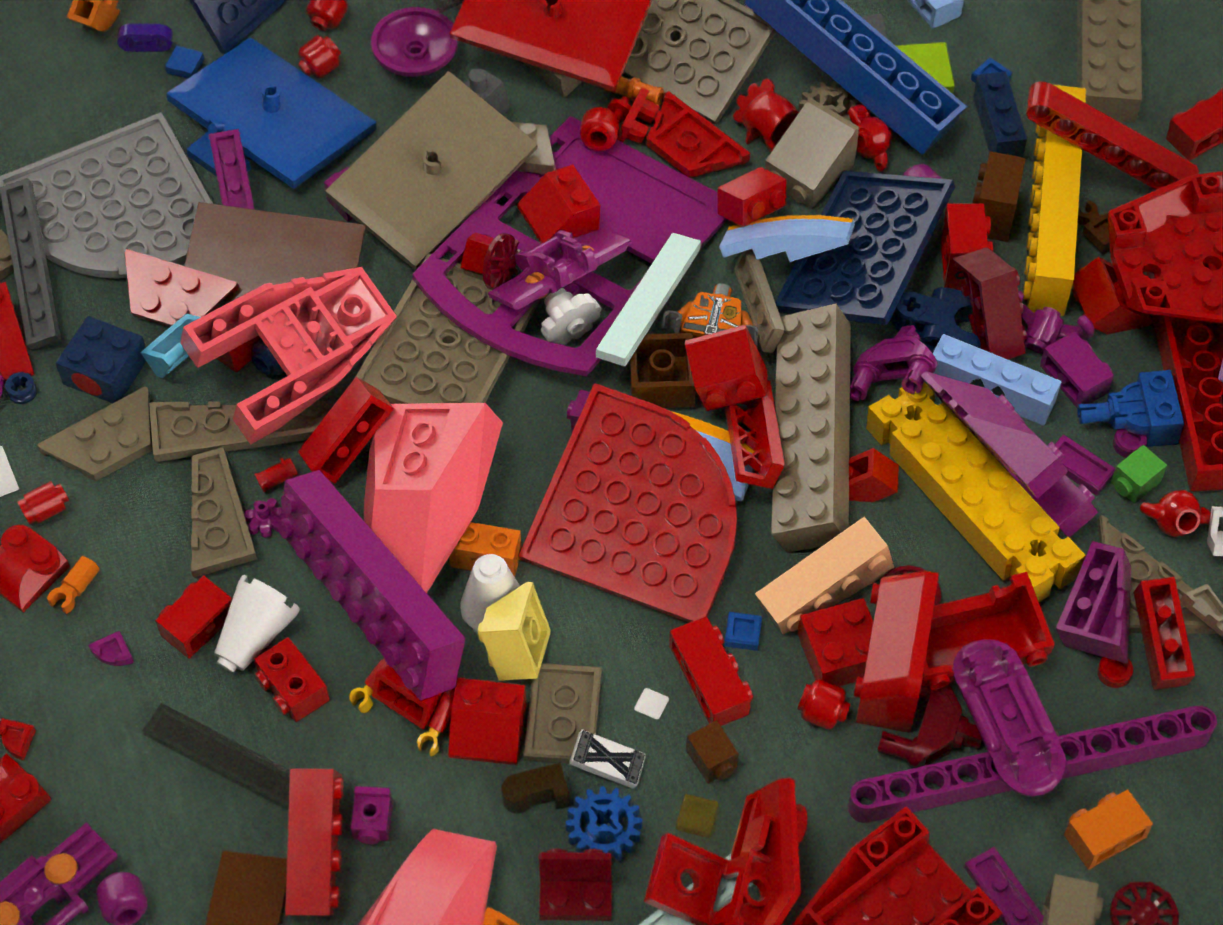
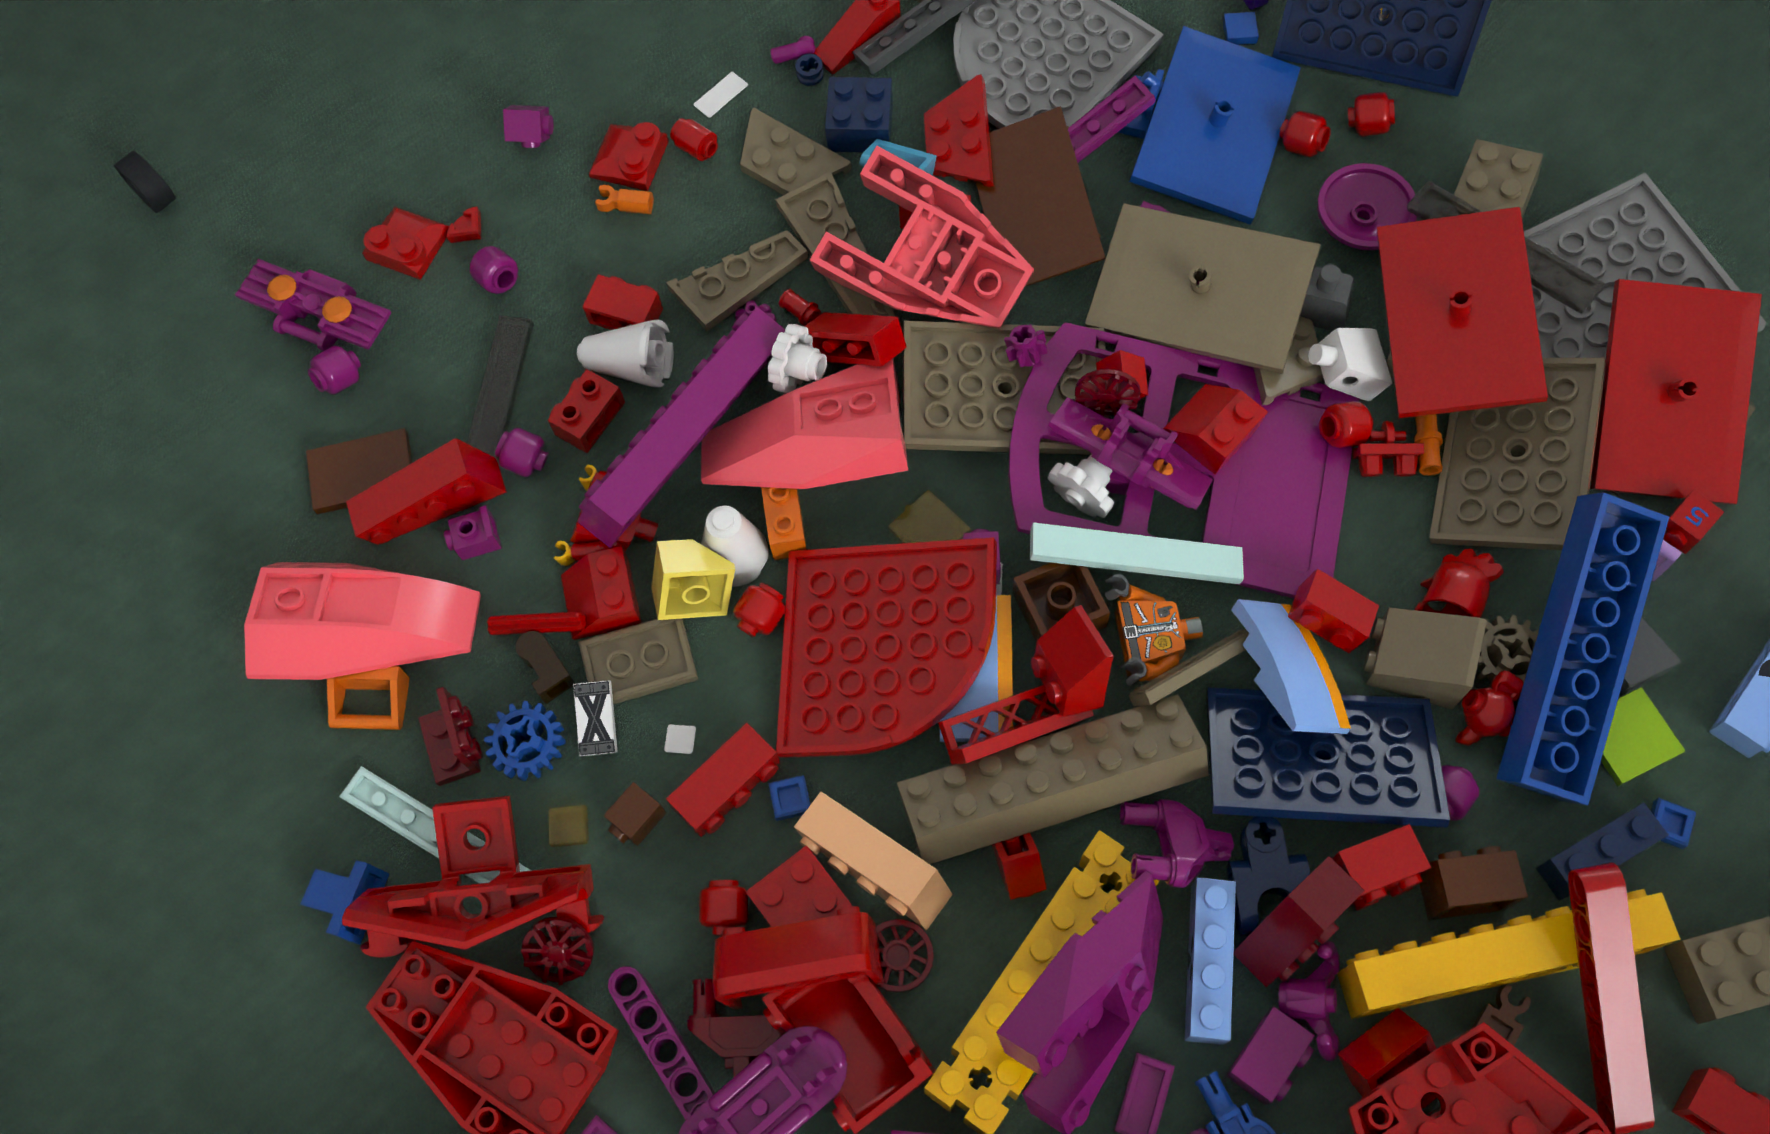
camera: 75 degrees right, 10 degrees up
(89, 718) = (494, 270): none -> magenta head
(111, 650) = (574, 259): magenta tile -> none
(307, 747) = (521, 452): none -> magenta head
(347, 476) = (795, 359): none -> white plant
(426, 302) = (1025, 345): none -> magenta gear
(492, 781) = (536, 622): none -> red axle
(539, 449) = (928, 521): none -> clear yellow piece
(545, 103) = (1352, 362): none -> white torso
(564, 595) = (759, 610): none -> red head
(692, 141) = (1388, 523): red wing -> none
(816, 848) = (557, 950): none -> dark red wheel

